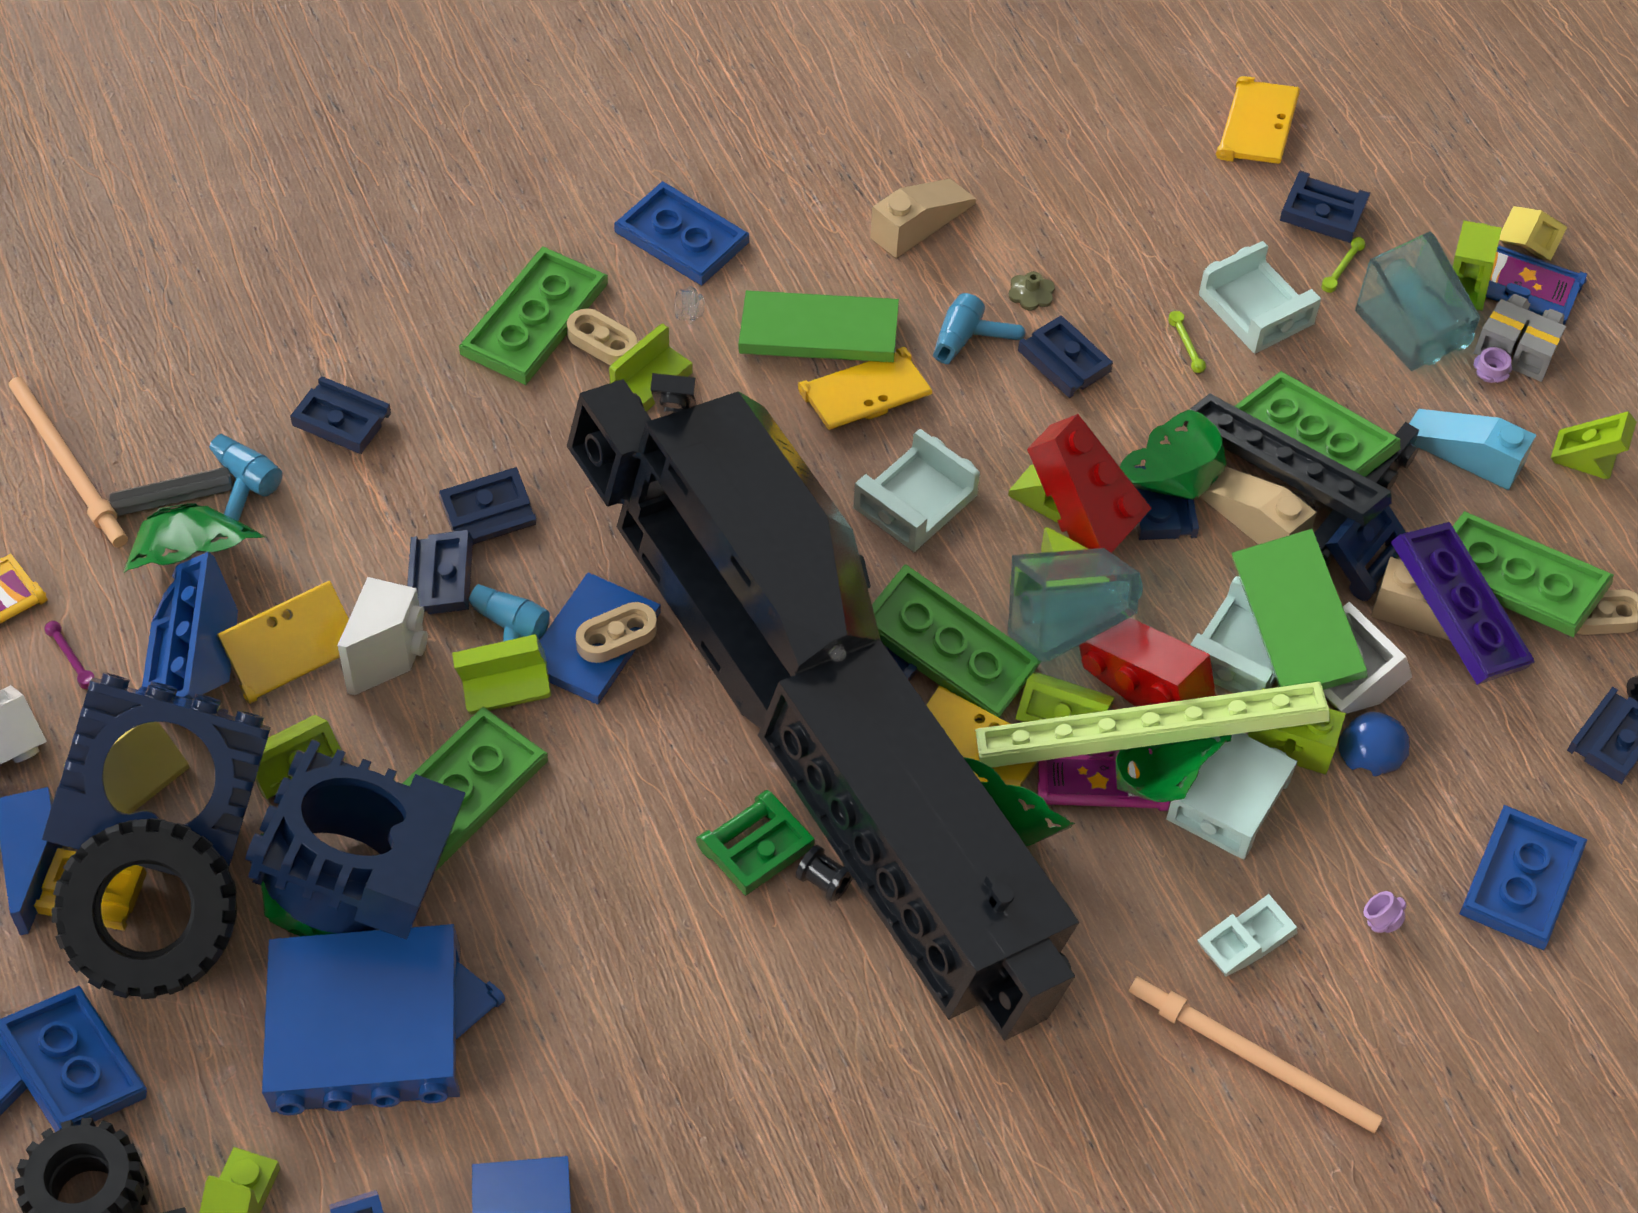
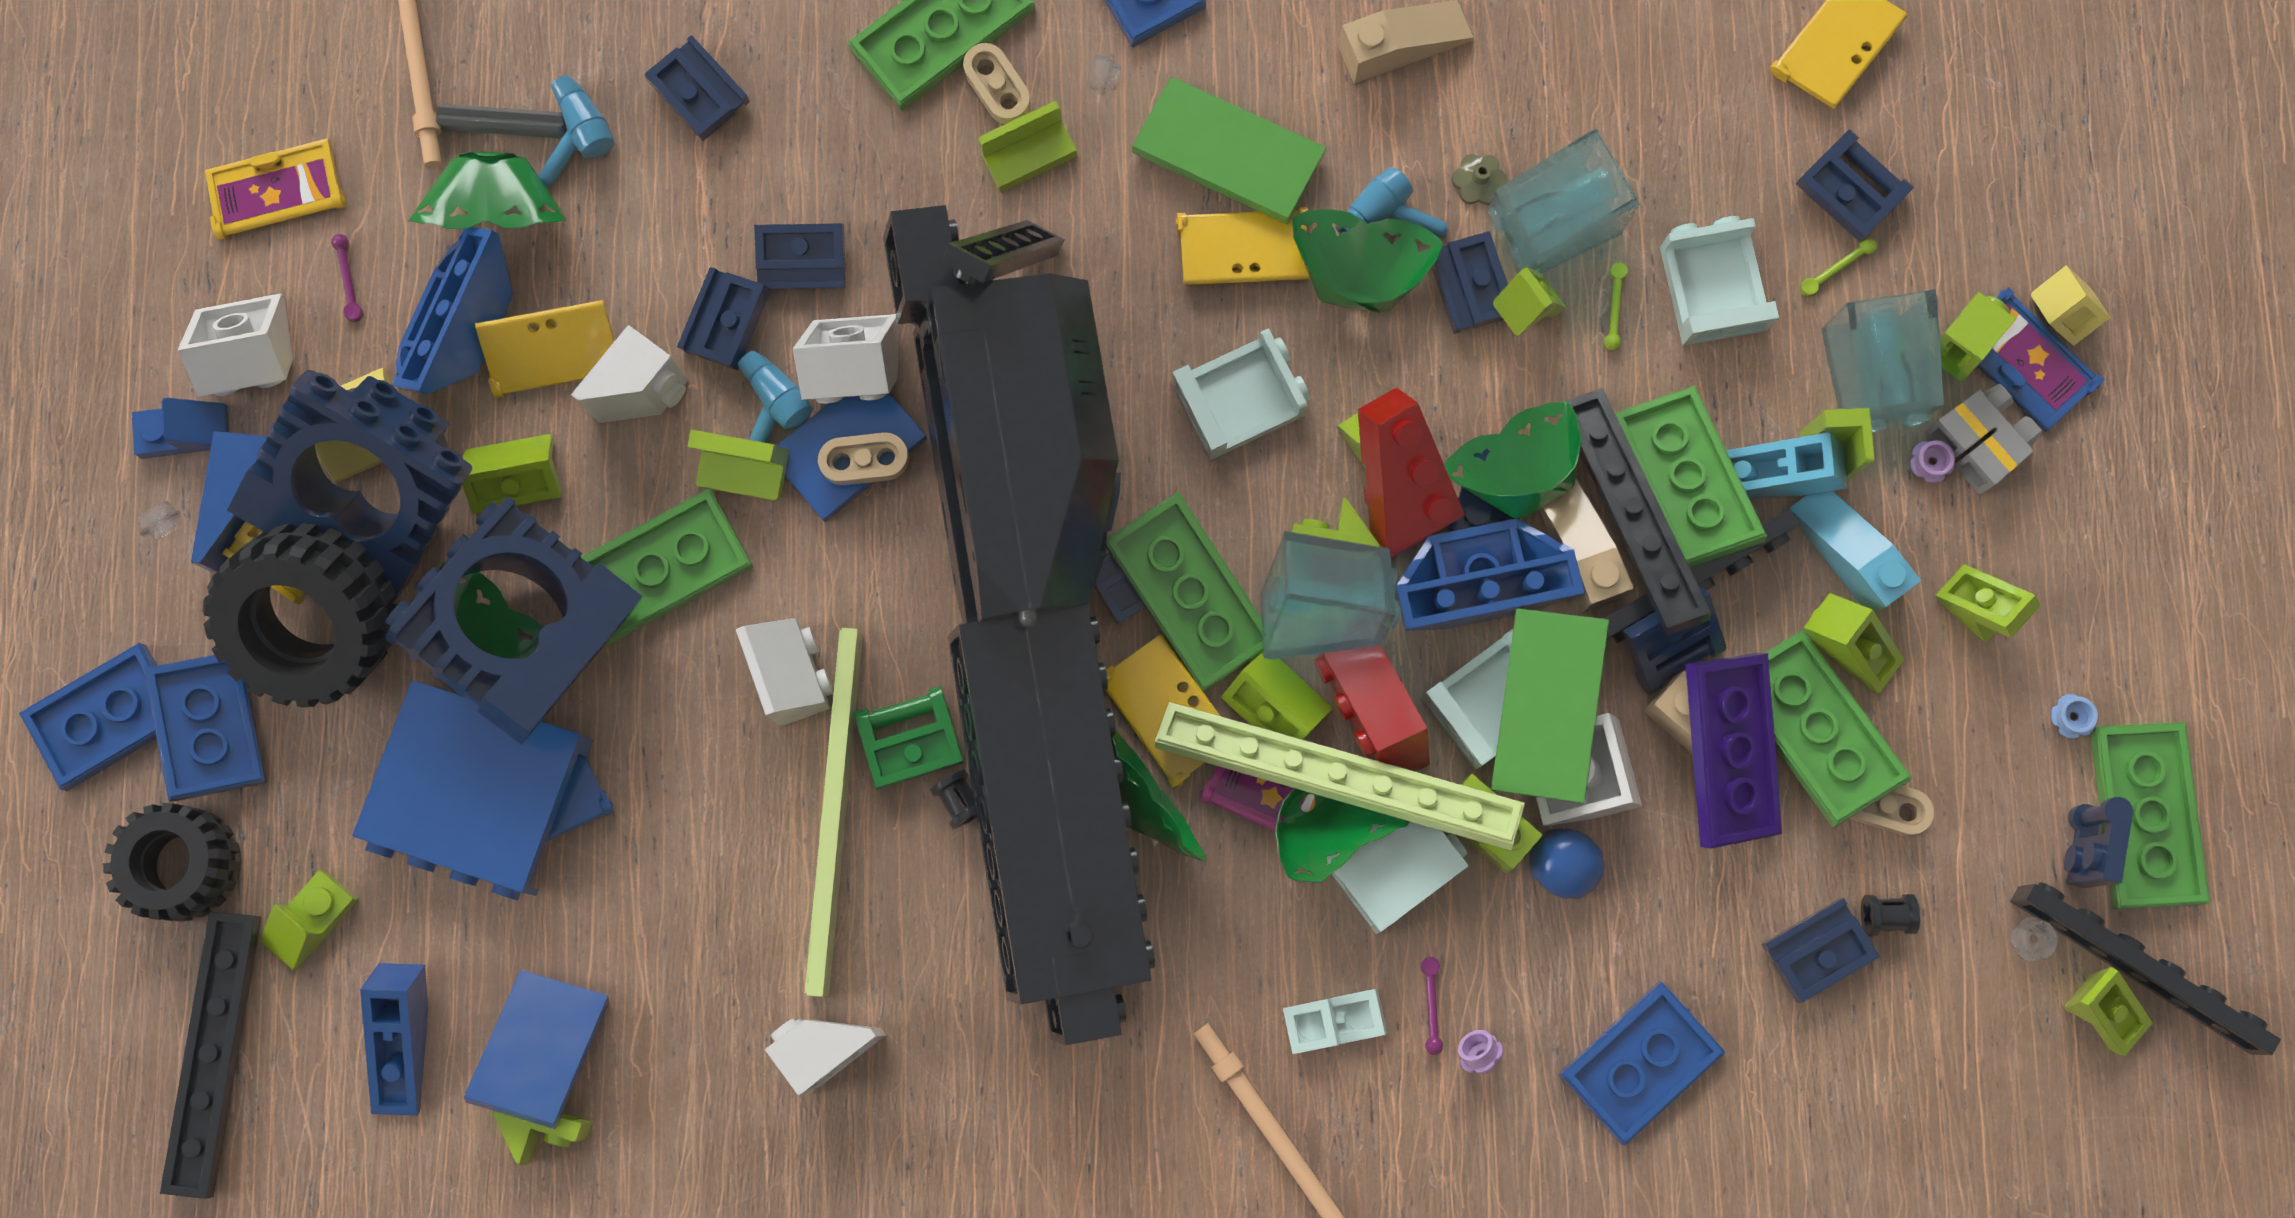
camera: 25 degrees right, 25 degrees up
(569, 563) = (848, 358): none -> white slope
(619, 820) = (785, 669): none -> white slope
(718, 928) = (834, 813): none -> yellowish green tile
(799, 1111) = (817, 1050): none -> white slope
(967, 369) = (1362, 265): none -> green piece
(1112, 276) = (1564, 205): none -> clear light blue slope
(1120, 345) = (1527, 301): none -> lime slope
(1194, 546) = (1485, 576): none -> blue wedge
(1304, 867) = (1430, 967): none -> magenta hinge
(1393, 394) = (1791, 466): none -> medium azure slope
(1418, 360) = (1852, 430): none -> lime panel
(1510, 501) = (1854, 641): none -> lime slope

